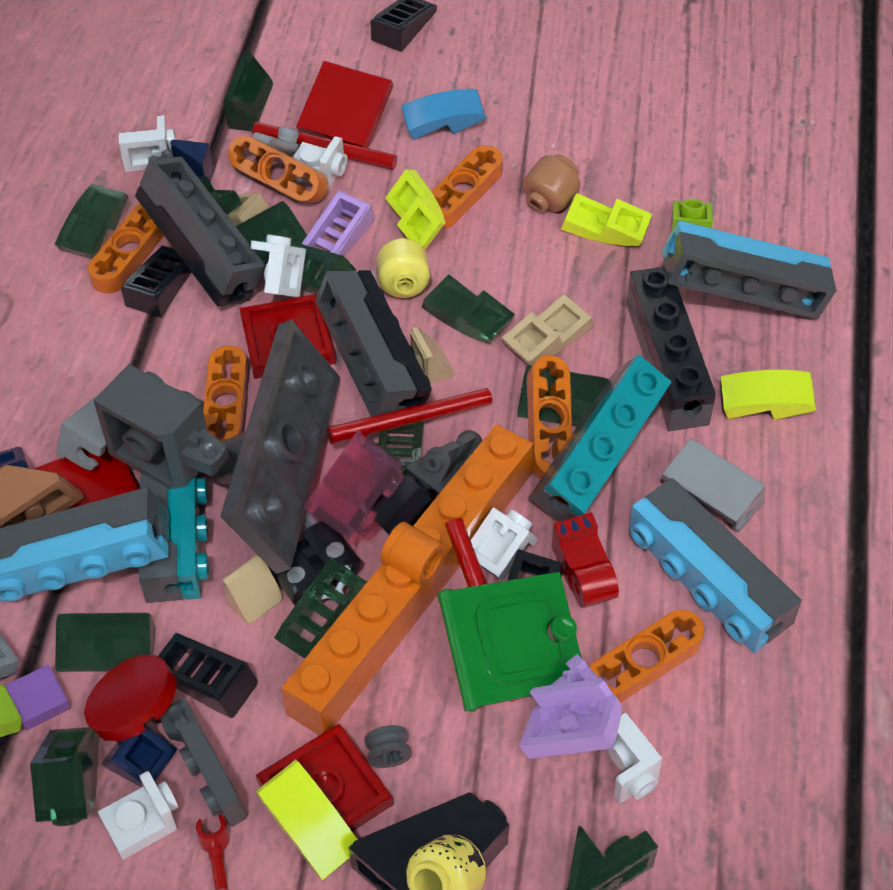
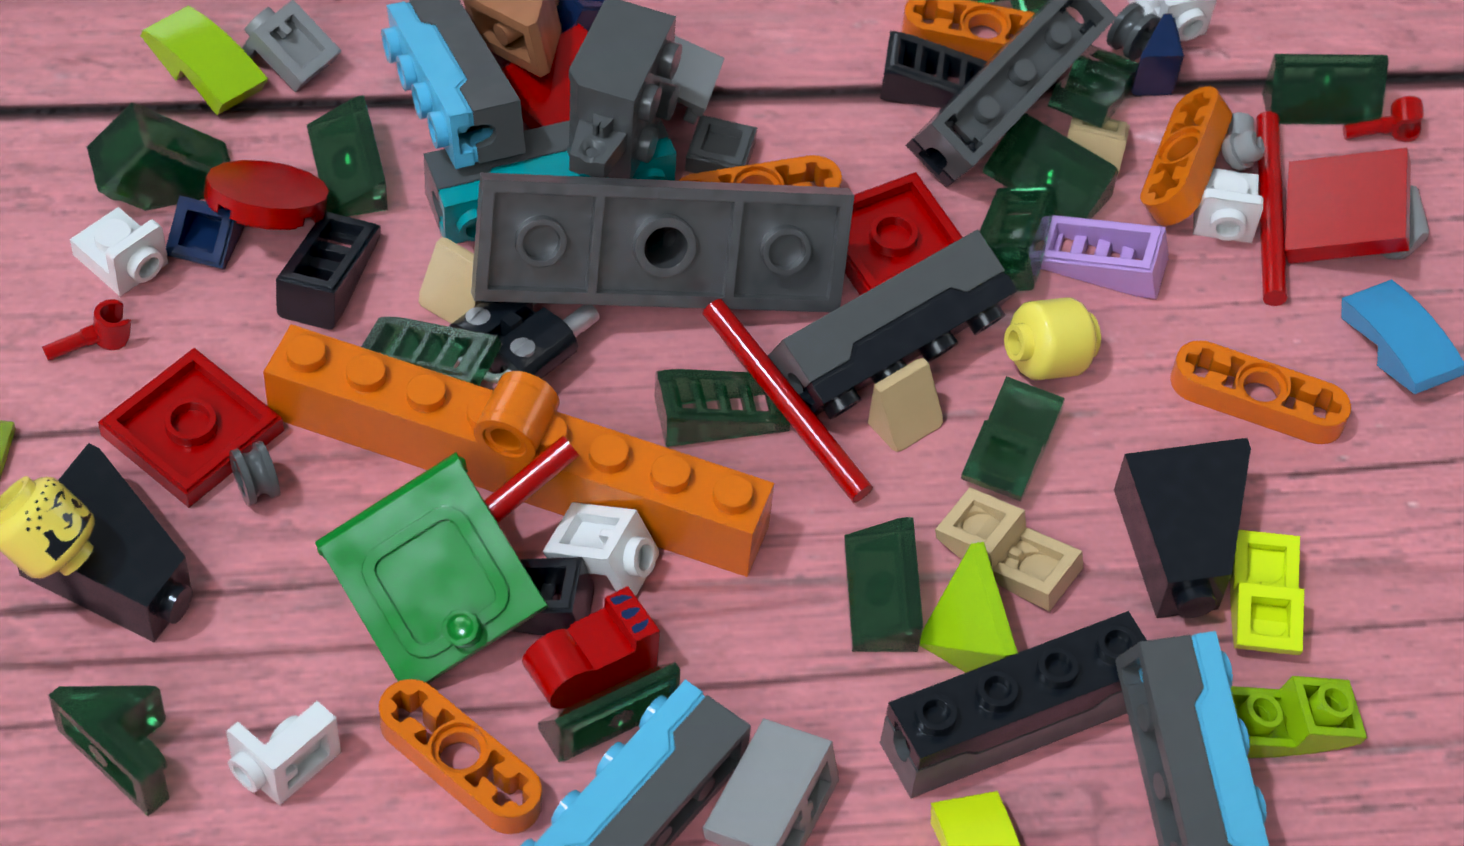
camera: 70 degrees right, 0 degrees up
(37, 697) = (263, 117): medium lavender tile -> none
(199, 757) = (197, 292): dark grey hinge -> none
(279, 66) = (1403, 122): none -> red hand
(284, 266) = (983, 186): white bracket -> none
(308, 819) = (130, 395): neon yellow slope -> none
(355, 485) = (616, 331): clear pink slope -> none
(405, 504) = (627, 408): black piece -> none
(417, 208) = (1174, 334): neon yellow slope -> none
(443, 462) = (686, 430): dark grey hinge -> none
(536, 388) = (789, 598): orange beam -> none
(551, 183) = (1303, 498): nougat head -> none
(558, 240) = (1184, 521): none -> black slope
(572, 714) = (335, 666): lavender slope -> none
(599, 351) = (970, 619): none -> lime slope
(600, 439) = (797, 624): teal piece -> none
(630, 562) = (607, 712): none -> clear green slope

